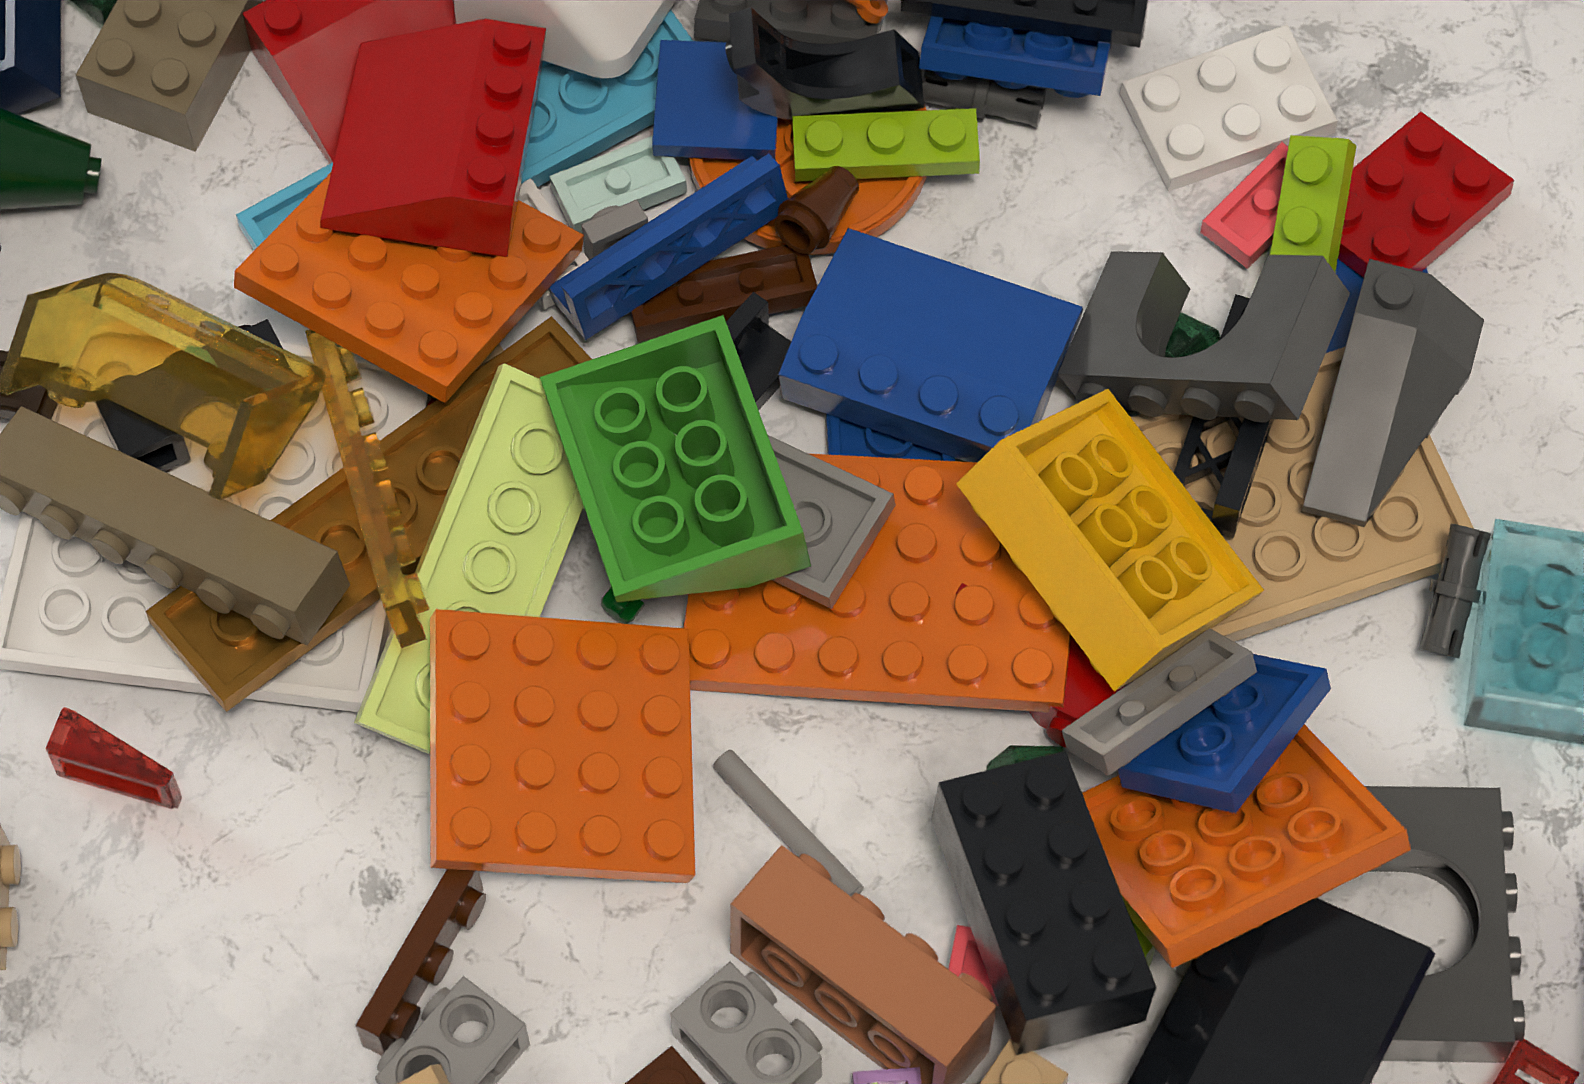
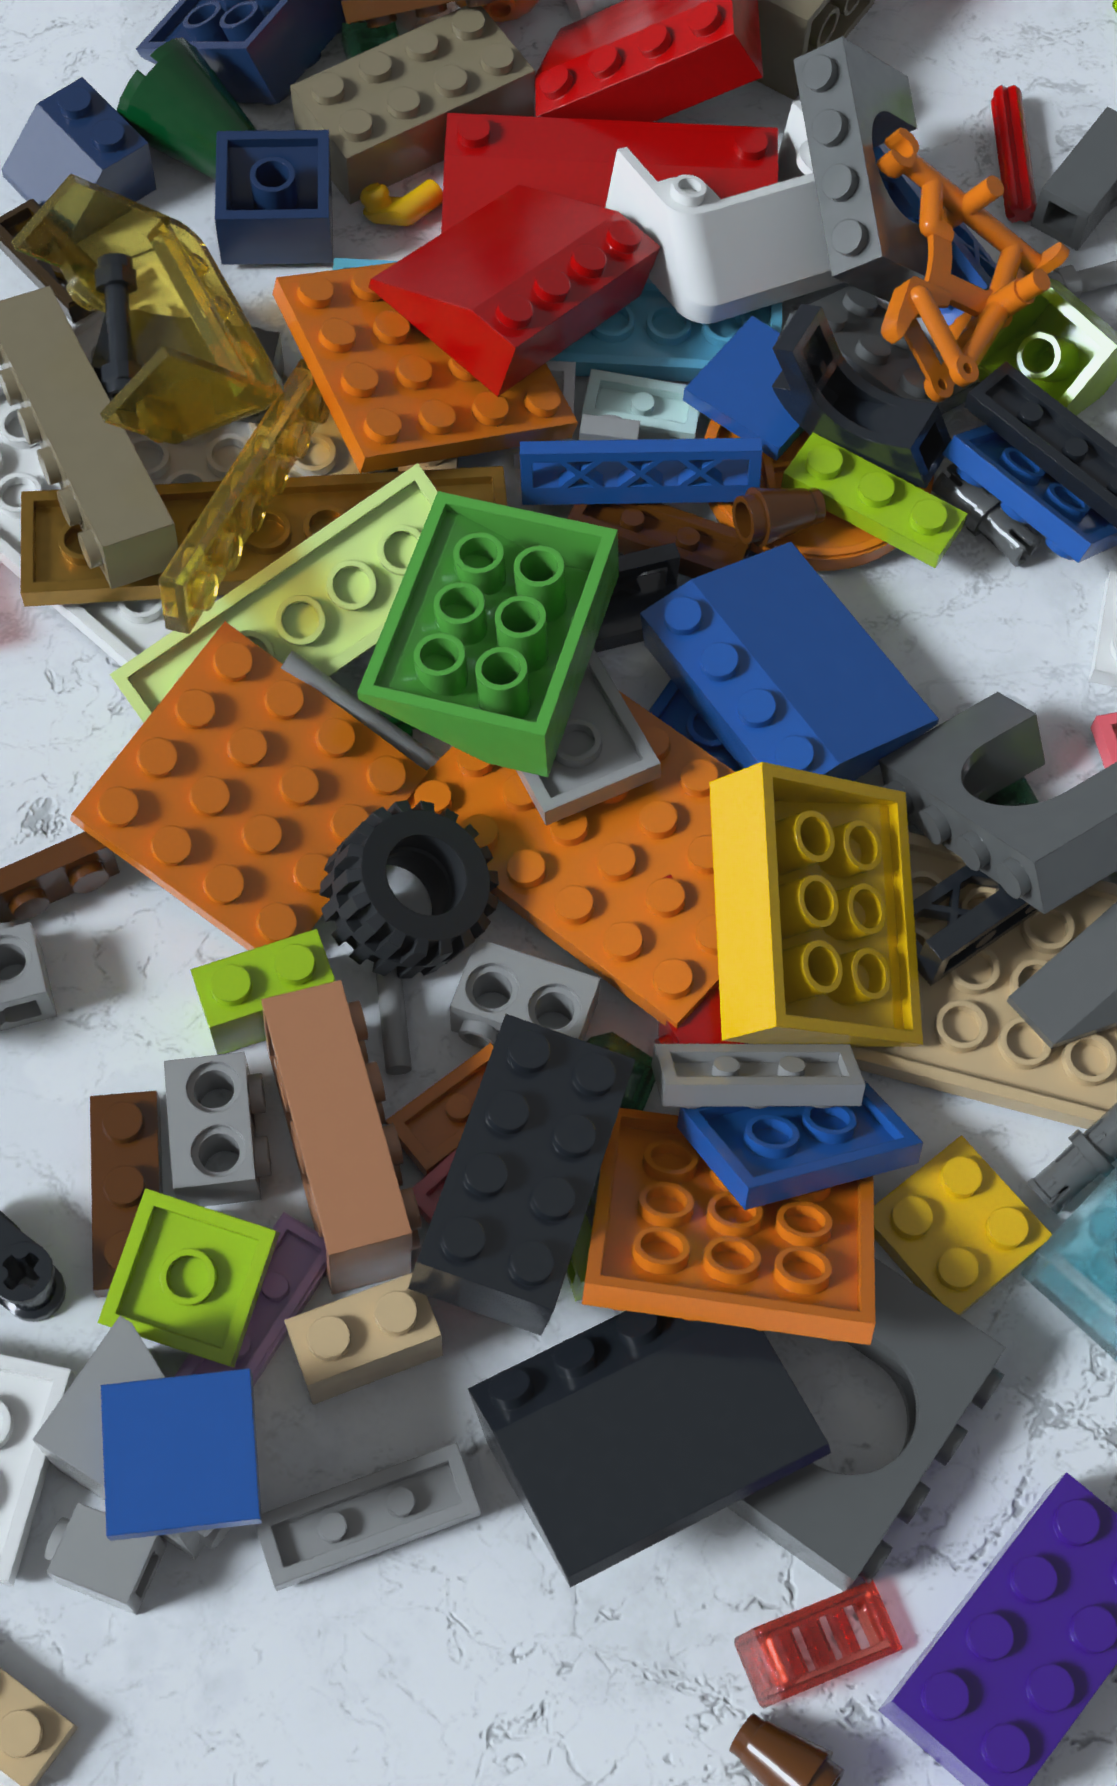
camera: 30 degrees right, 0 degrees up
(97, 364) = (116, 281): none -> black bar
(140, 189) = (274, 197): none -> dark blue slope
(256, 128) = (400, 211): none -> yellow arm
(534, 608) = (361, 711): none -> light grey bar
(692, 909) = (234, 986): none -> lime brick
(735, 769) = (441, 858): none -> black tyre
(913, 756) = (531, 990): none -> light grey brick
(927, 895) = (435, 1120): none -> orange plate
(1392, 719) = (957, 1227): none -> yellow plate

